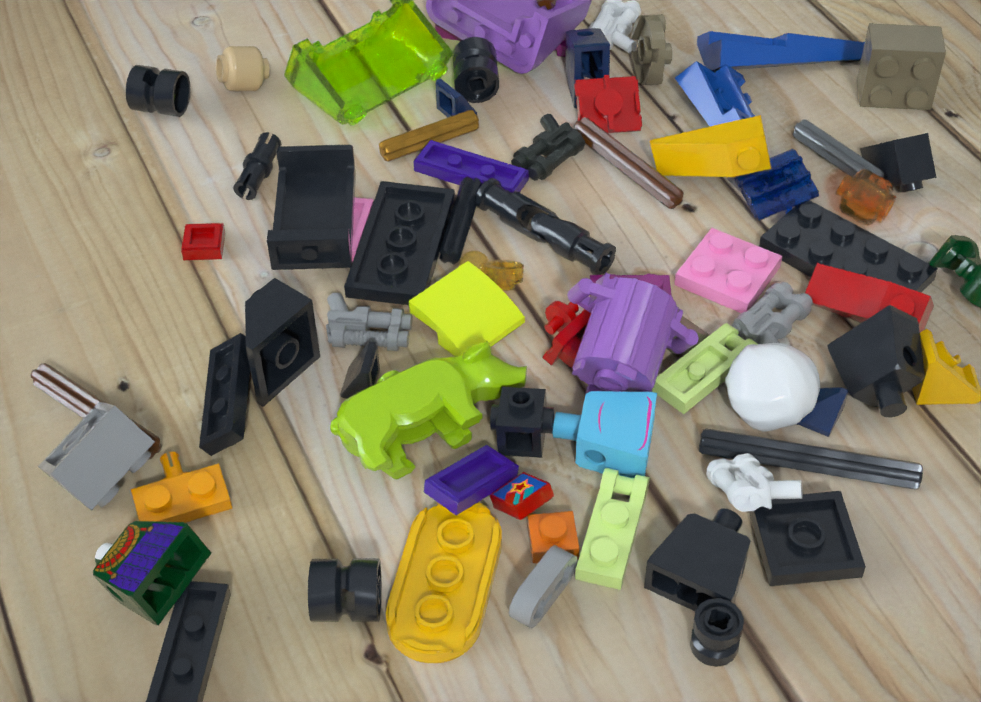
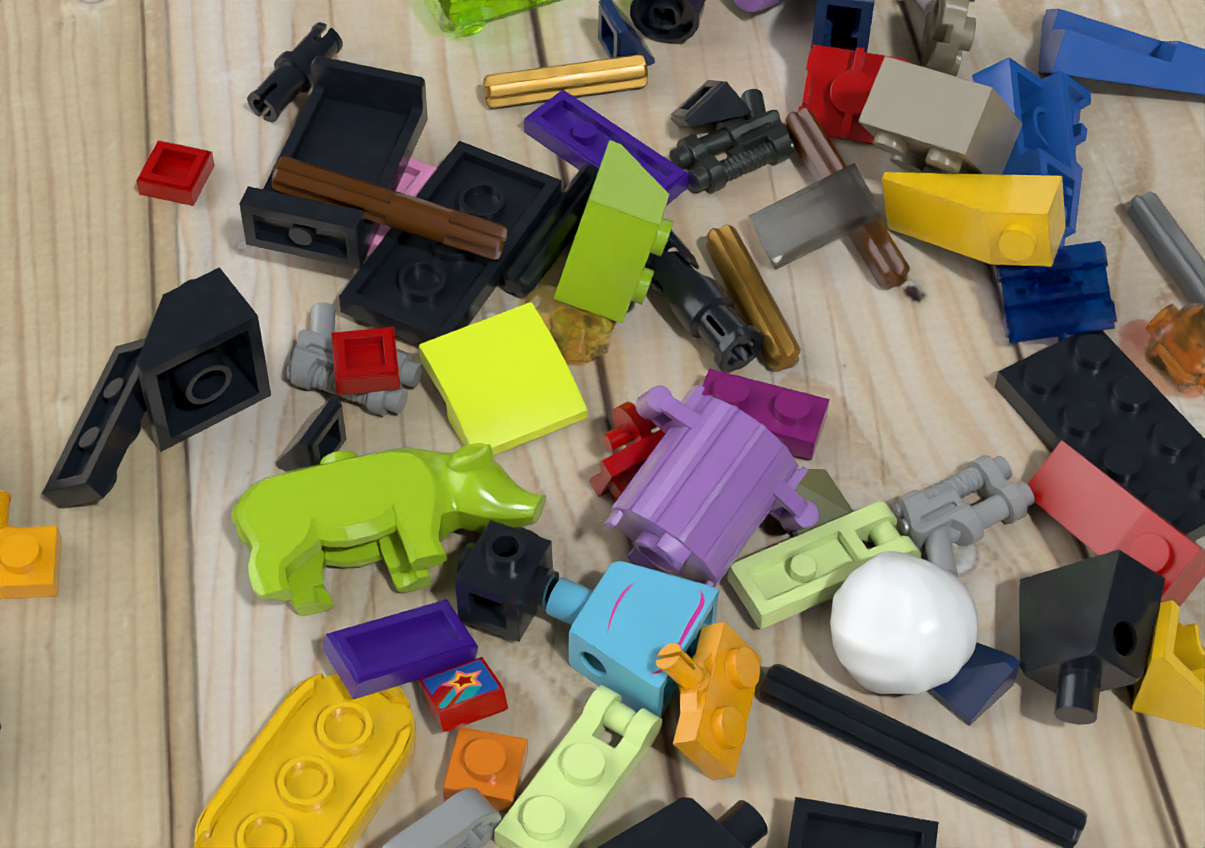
camera: 15 degrees right, 5 degrees up
(328, 588) = (141, 767): black wheel -> none
(362, 224) = (391, 207): none -> reddish brown axle
(379, 318) = (365, 361): none -> red tile
(506, 210) = (615, 238): none -> lime slope
(526, 126) = (710, 103): none -> black slope
(578, 213) = (752, 296): none -> pearl gold axle
(616, 175) = (815, 216): none -> clear smoke tile
(672, 101) = (938, 121): none -> brick
(676, 448) = (714, 697): none -> light orange plate
(728, 270) = (927, 414): bright pink plate -> none
(749, 483) = (801, 772): white piece -> none

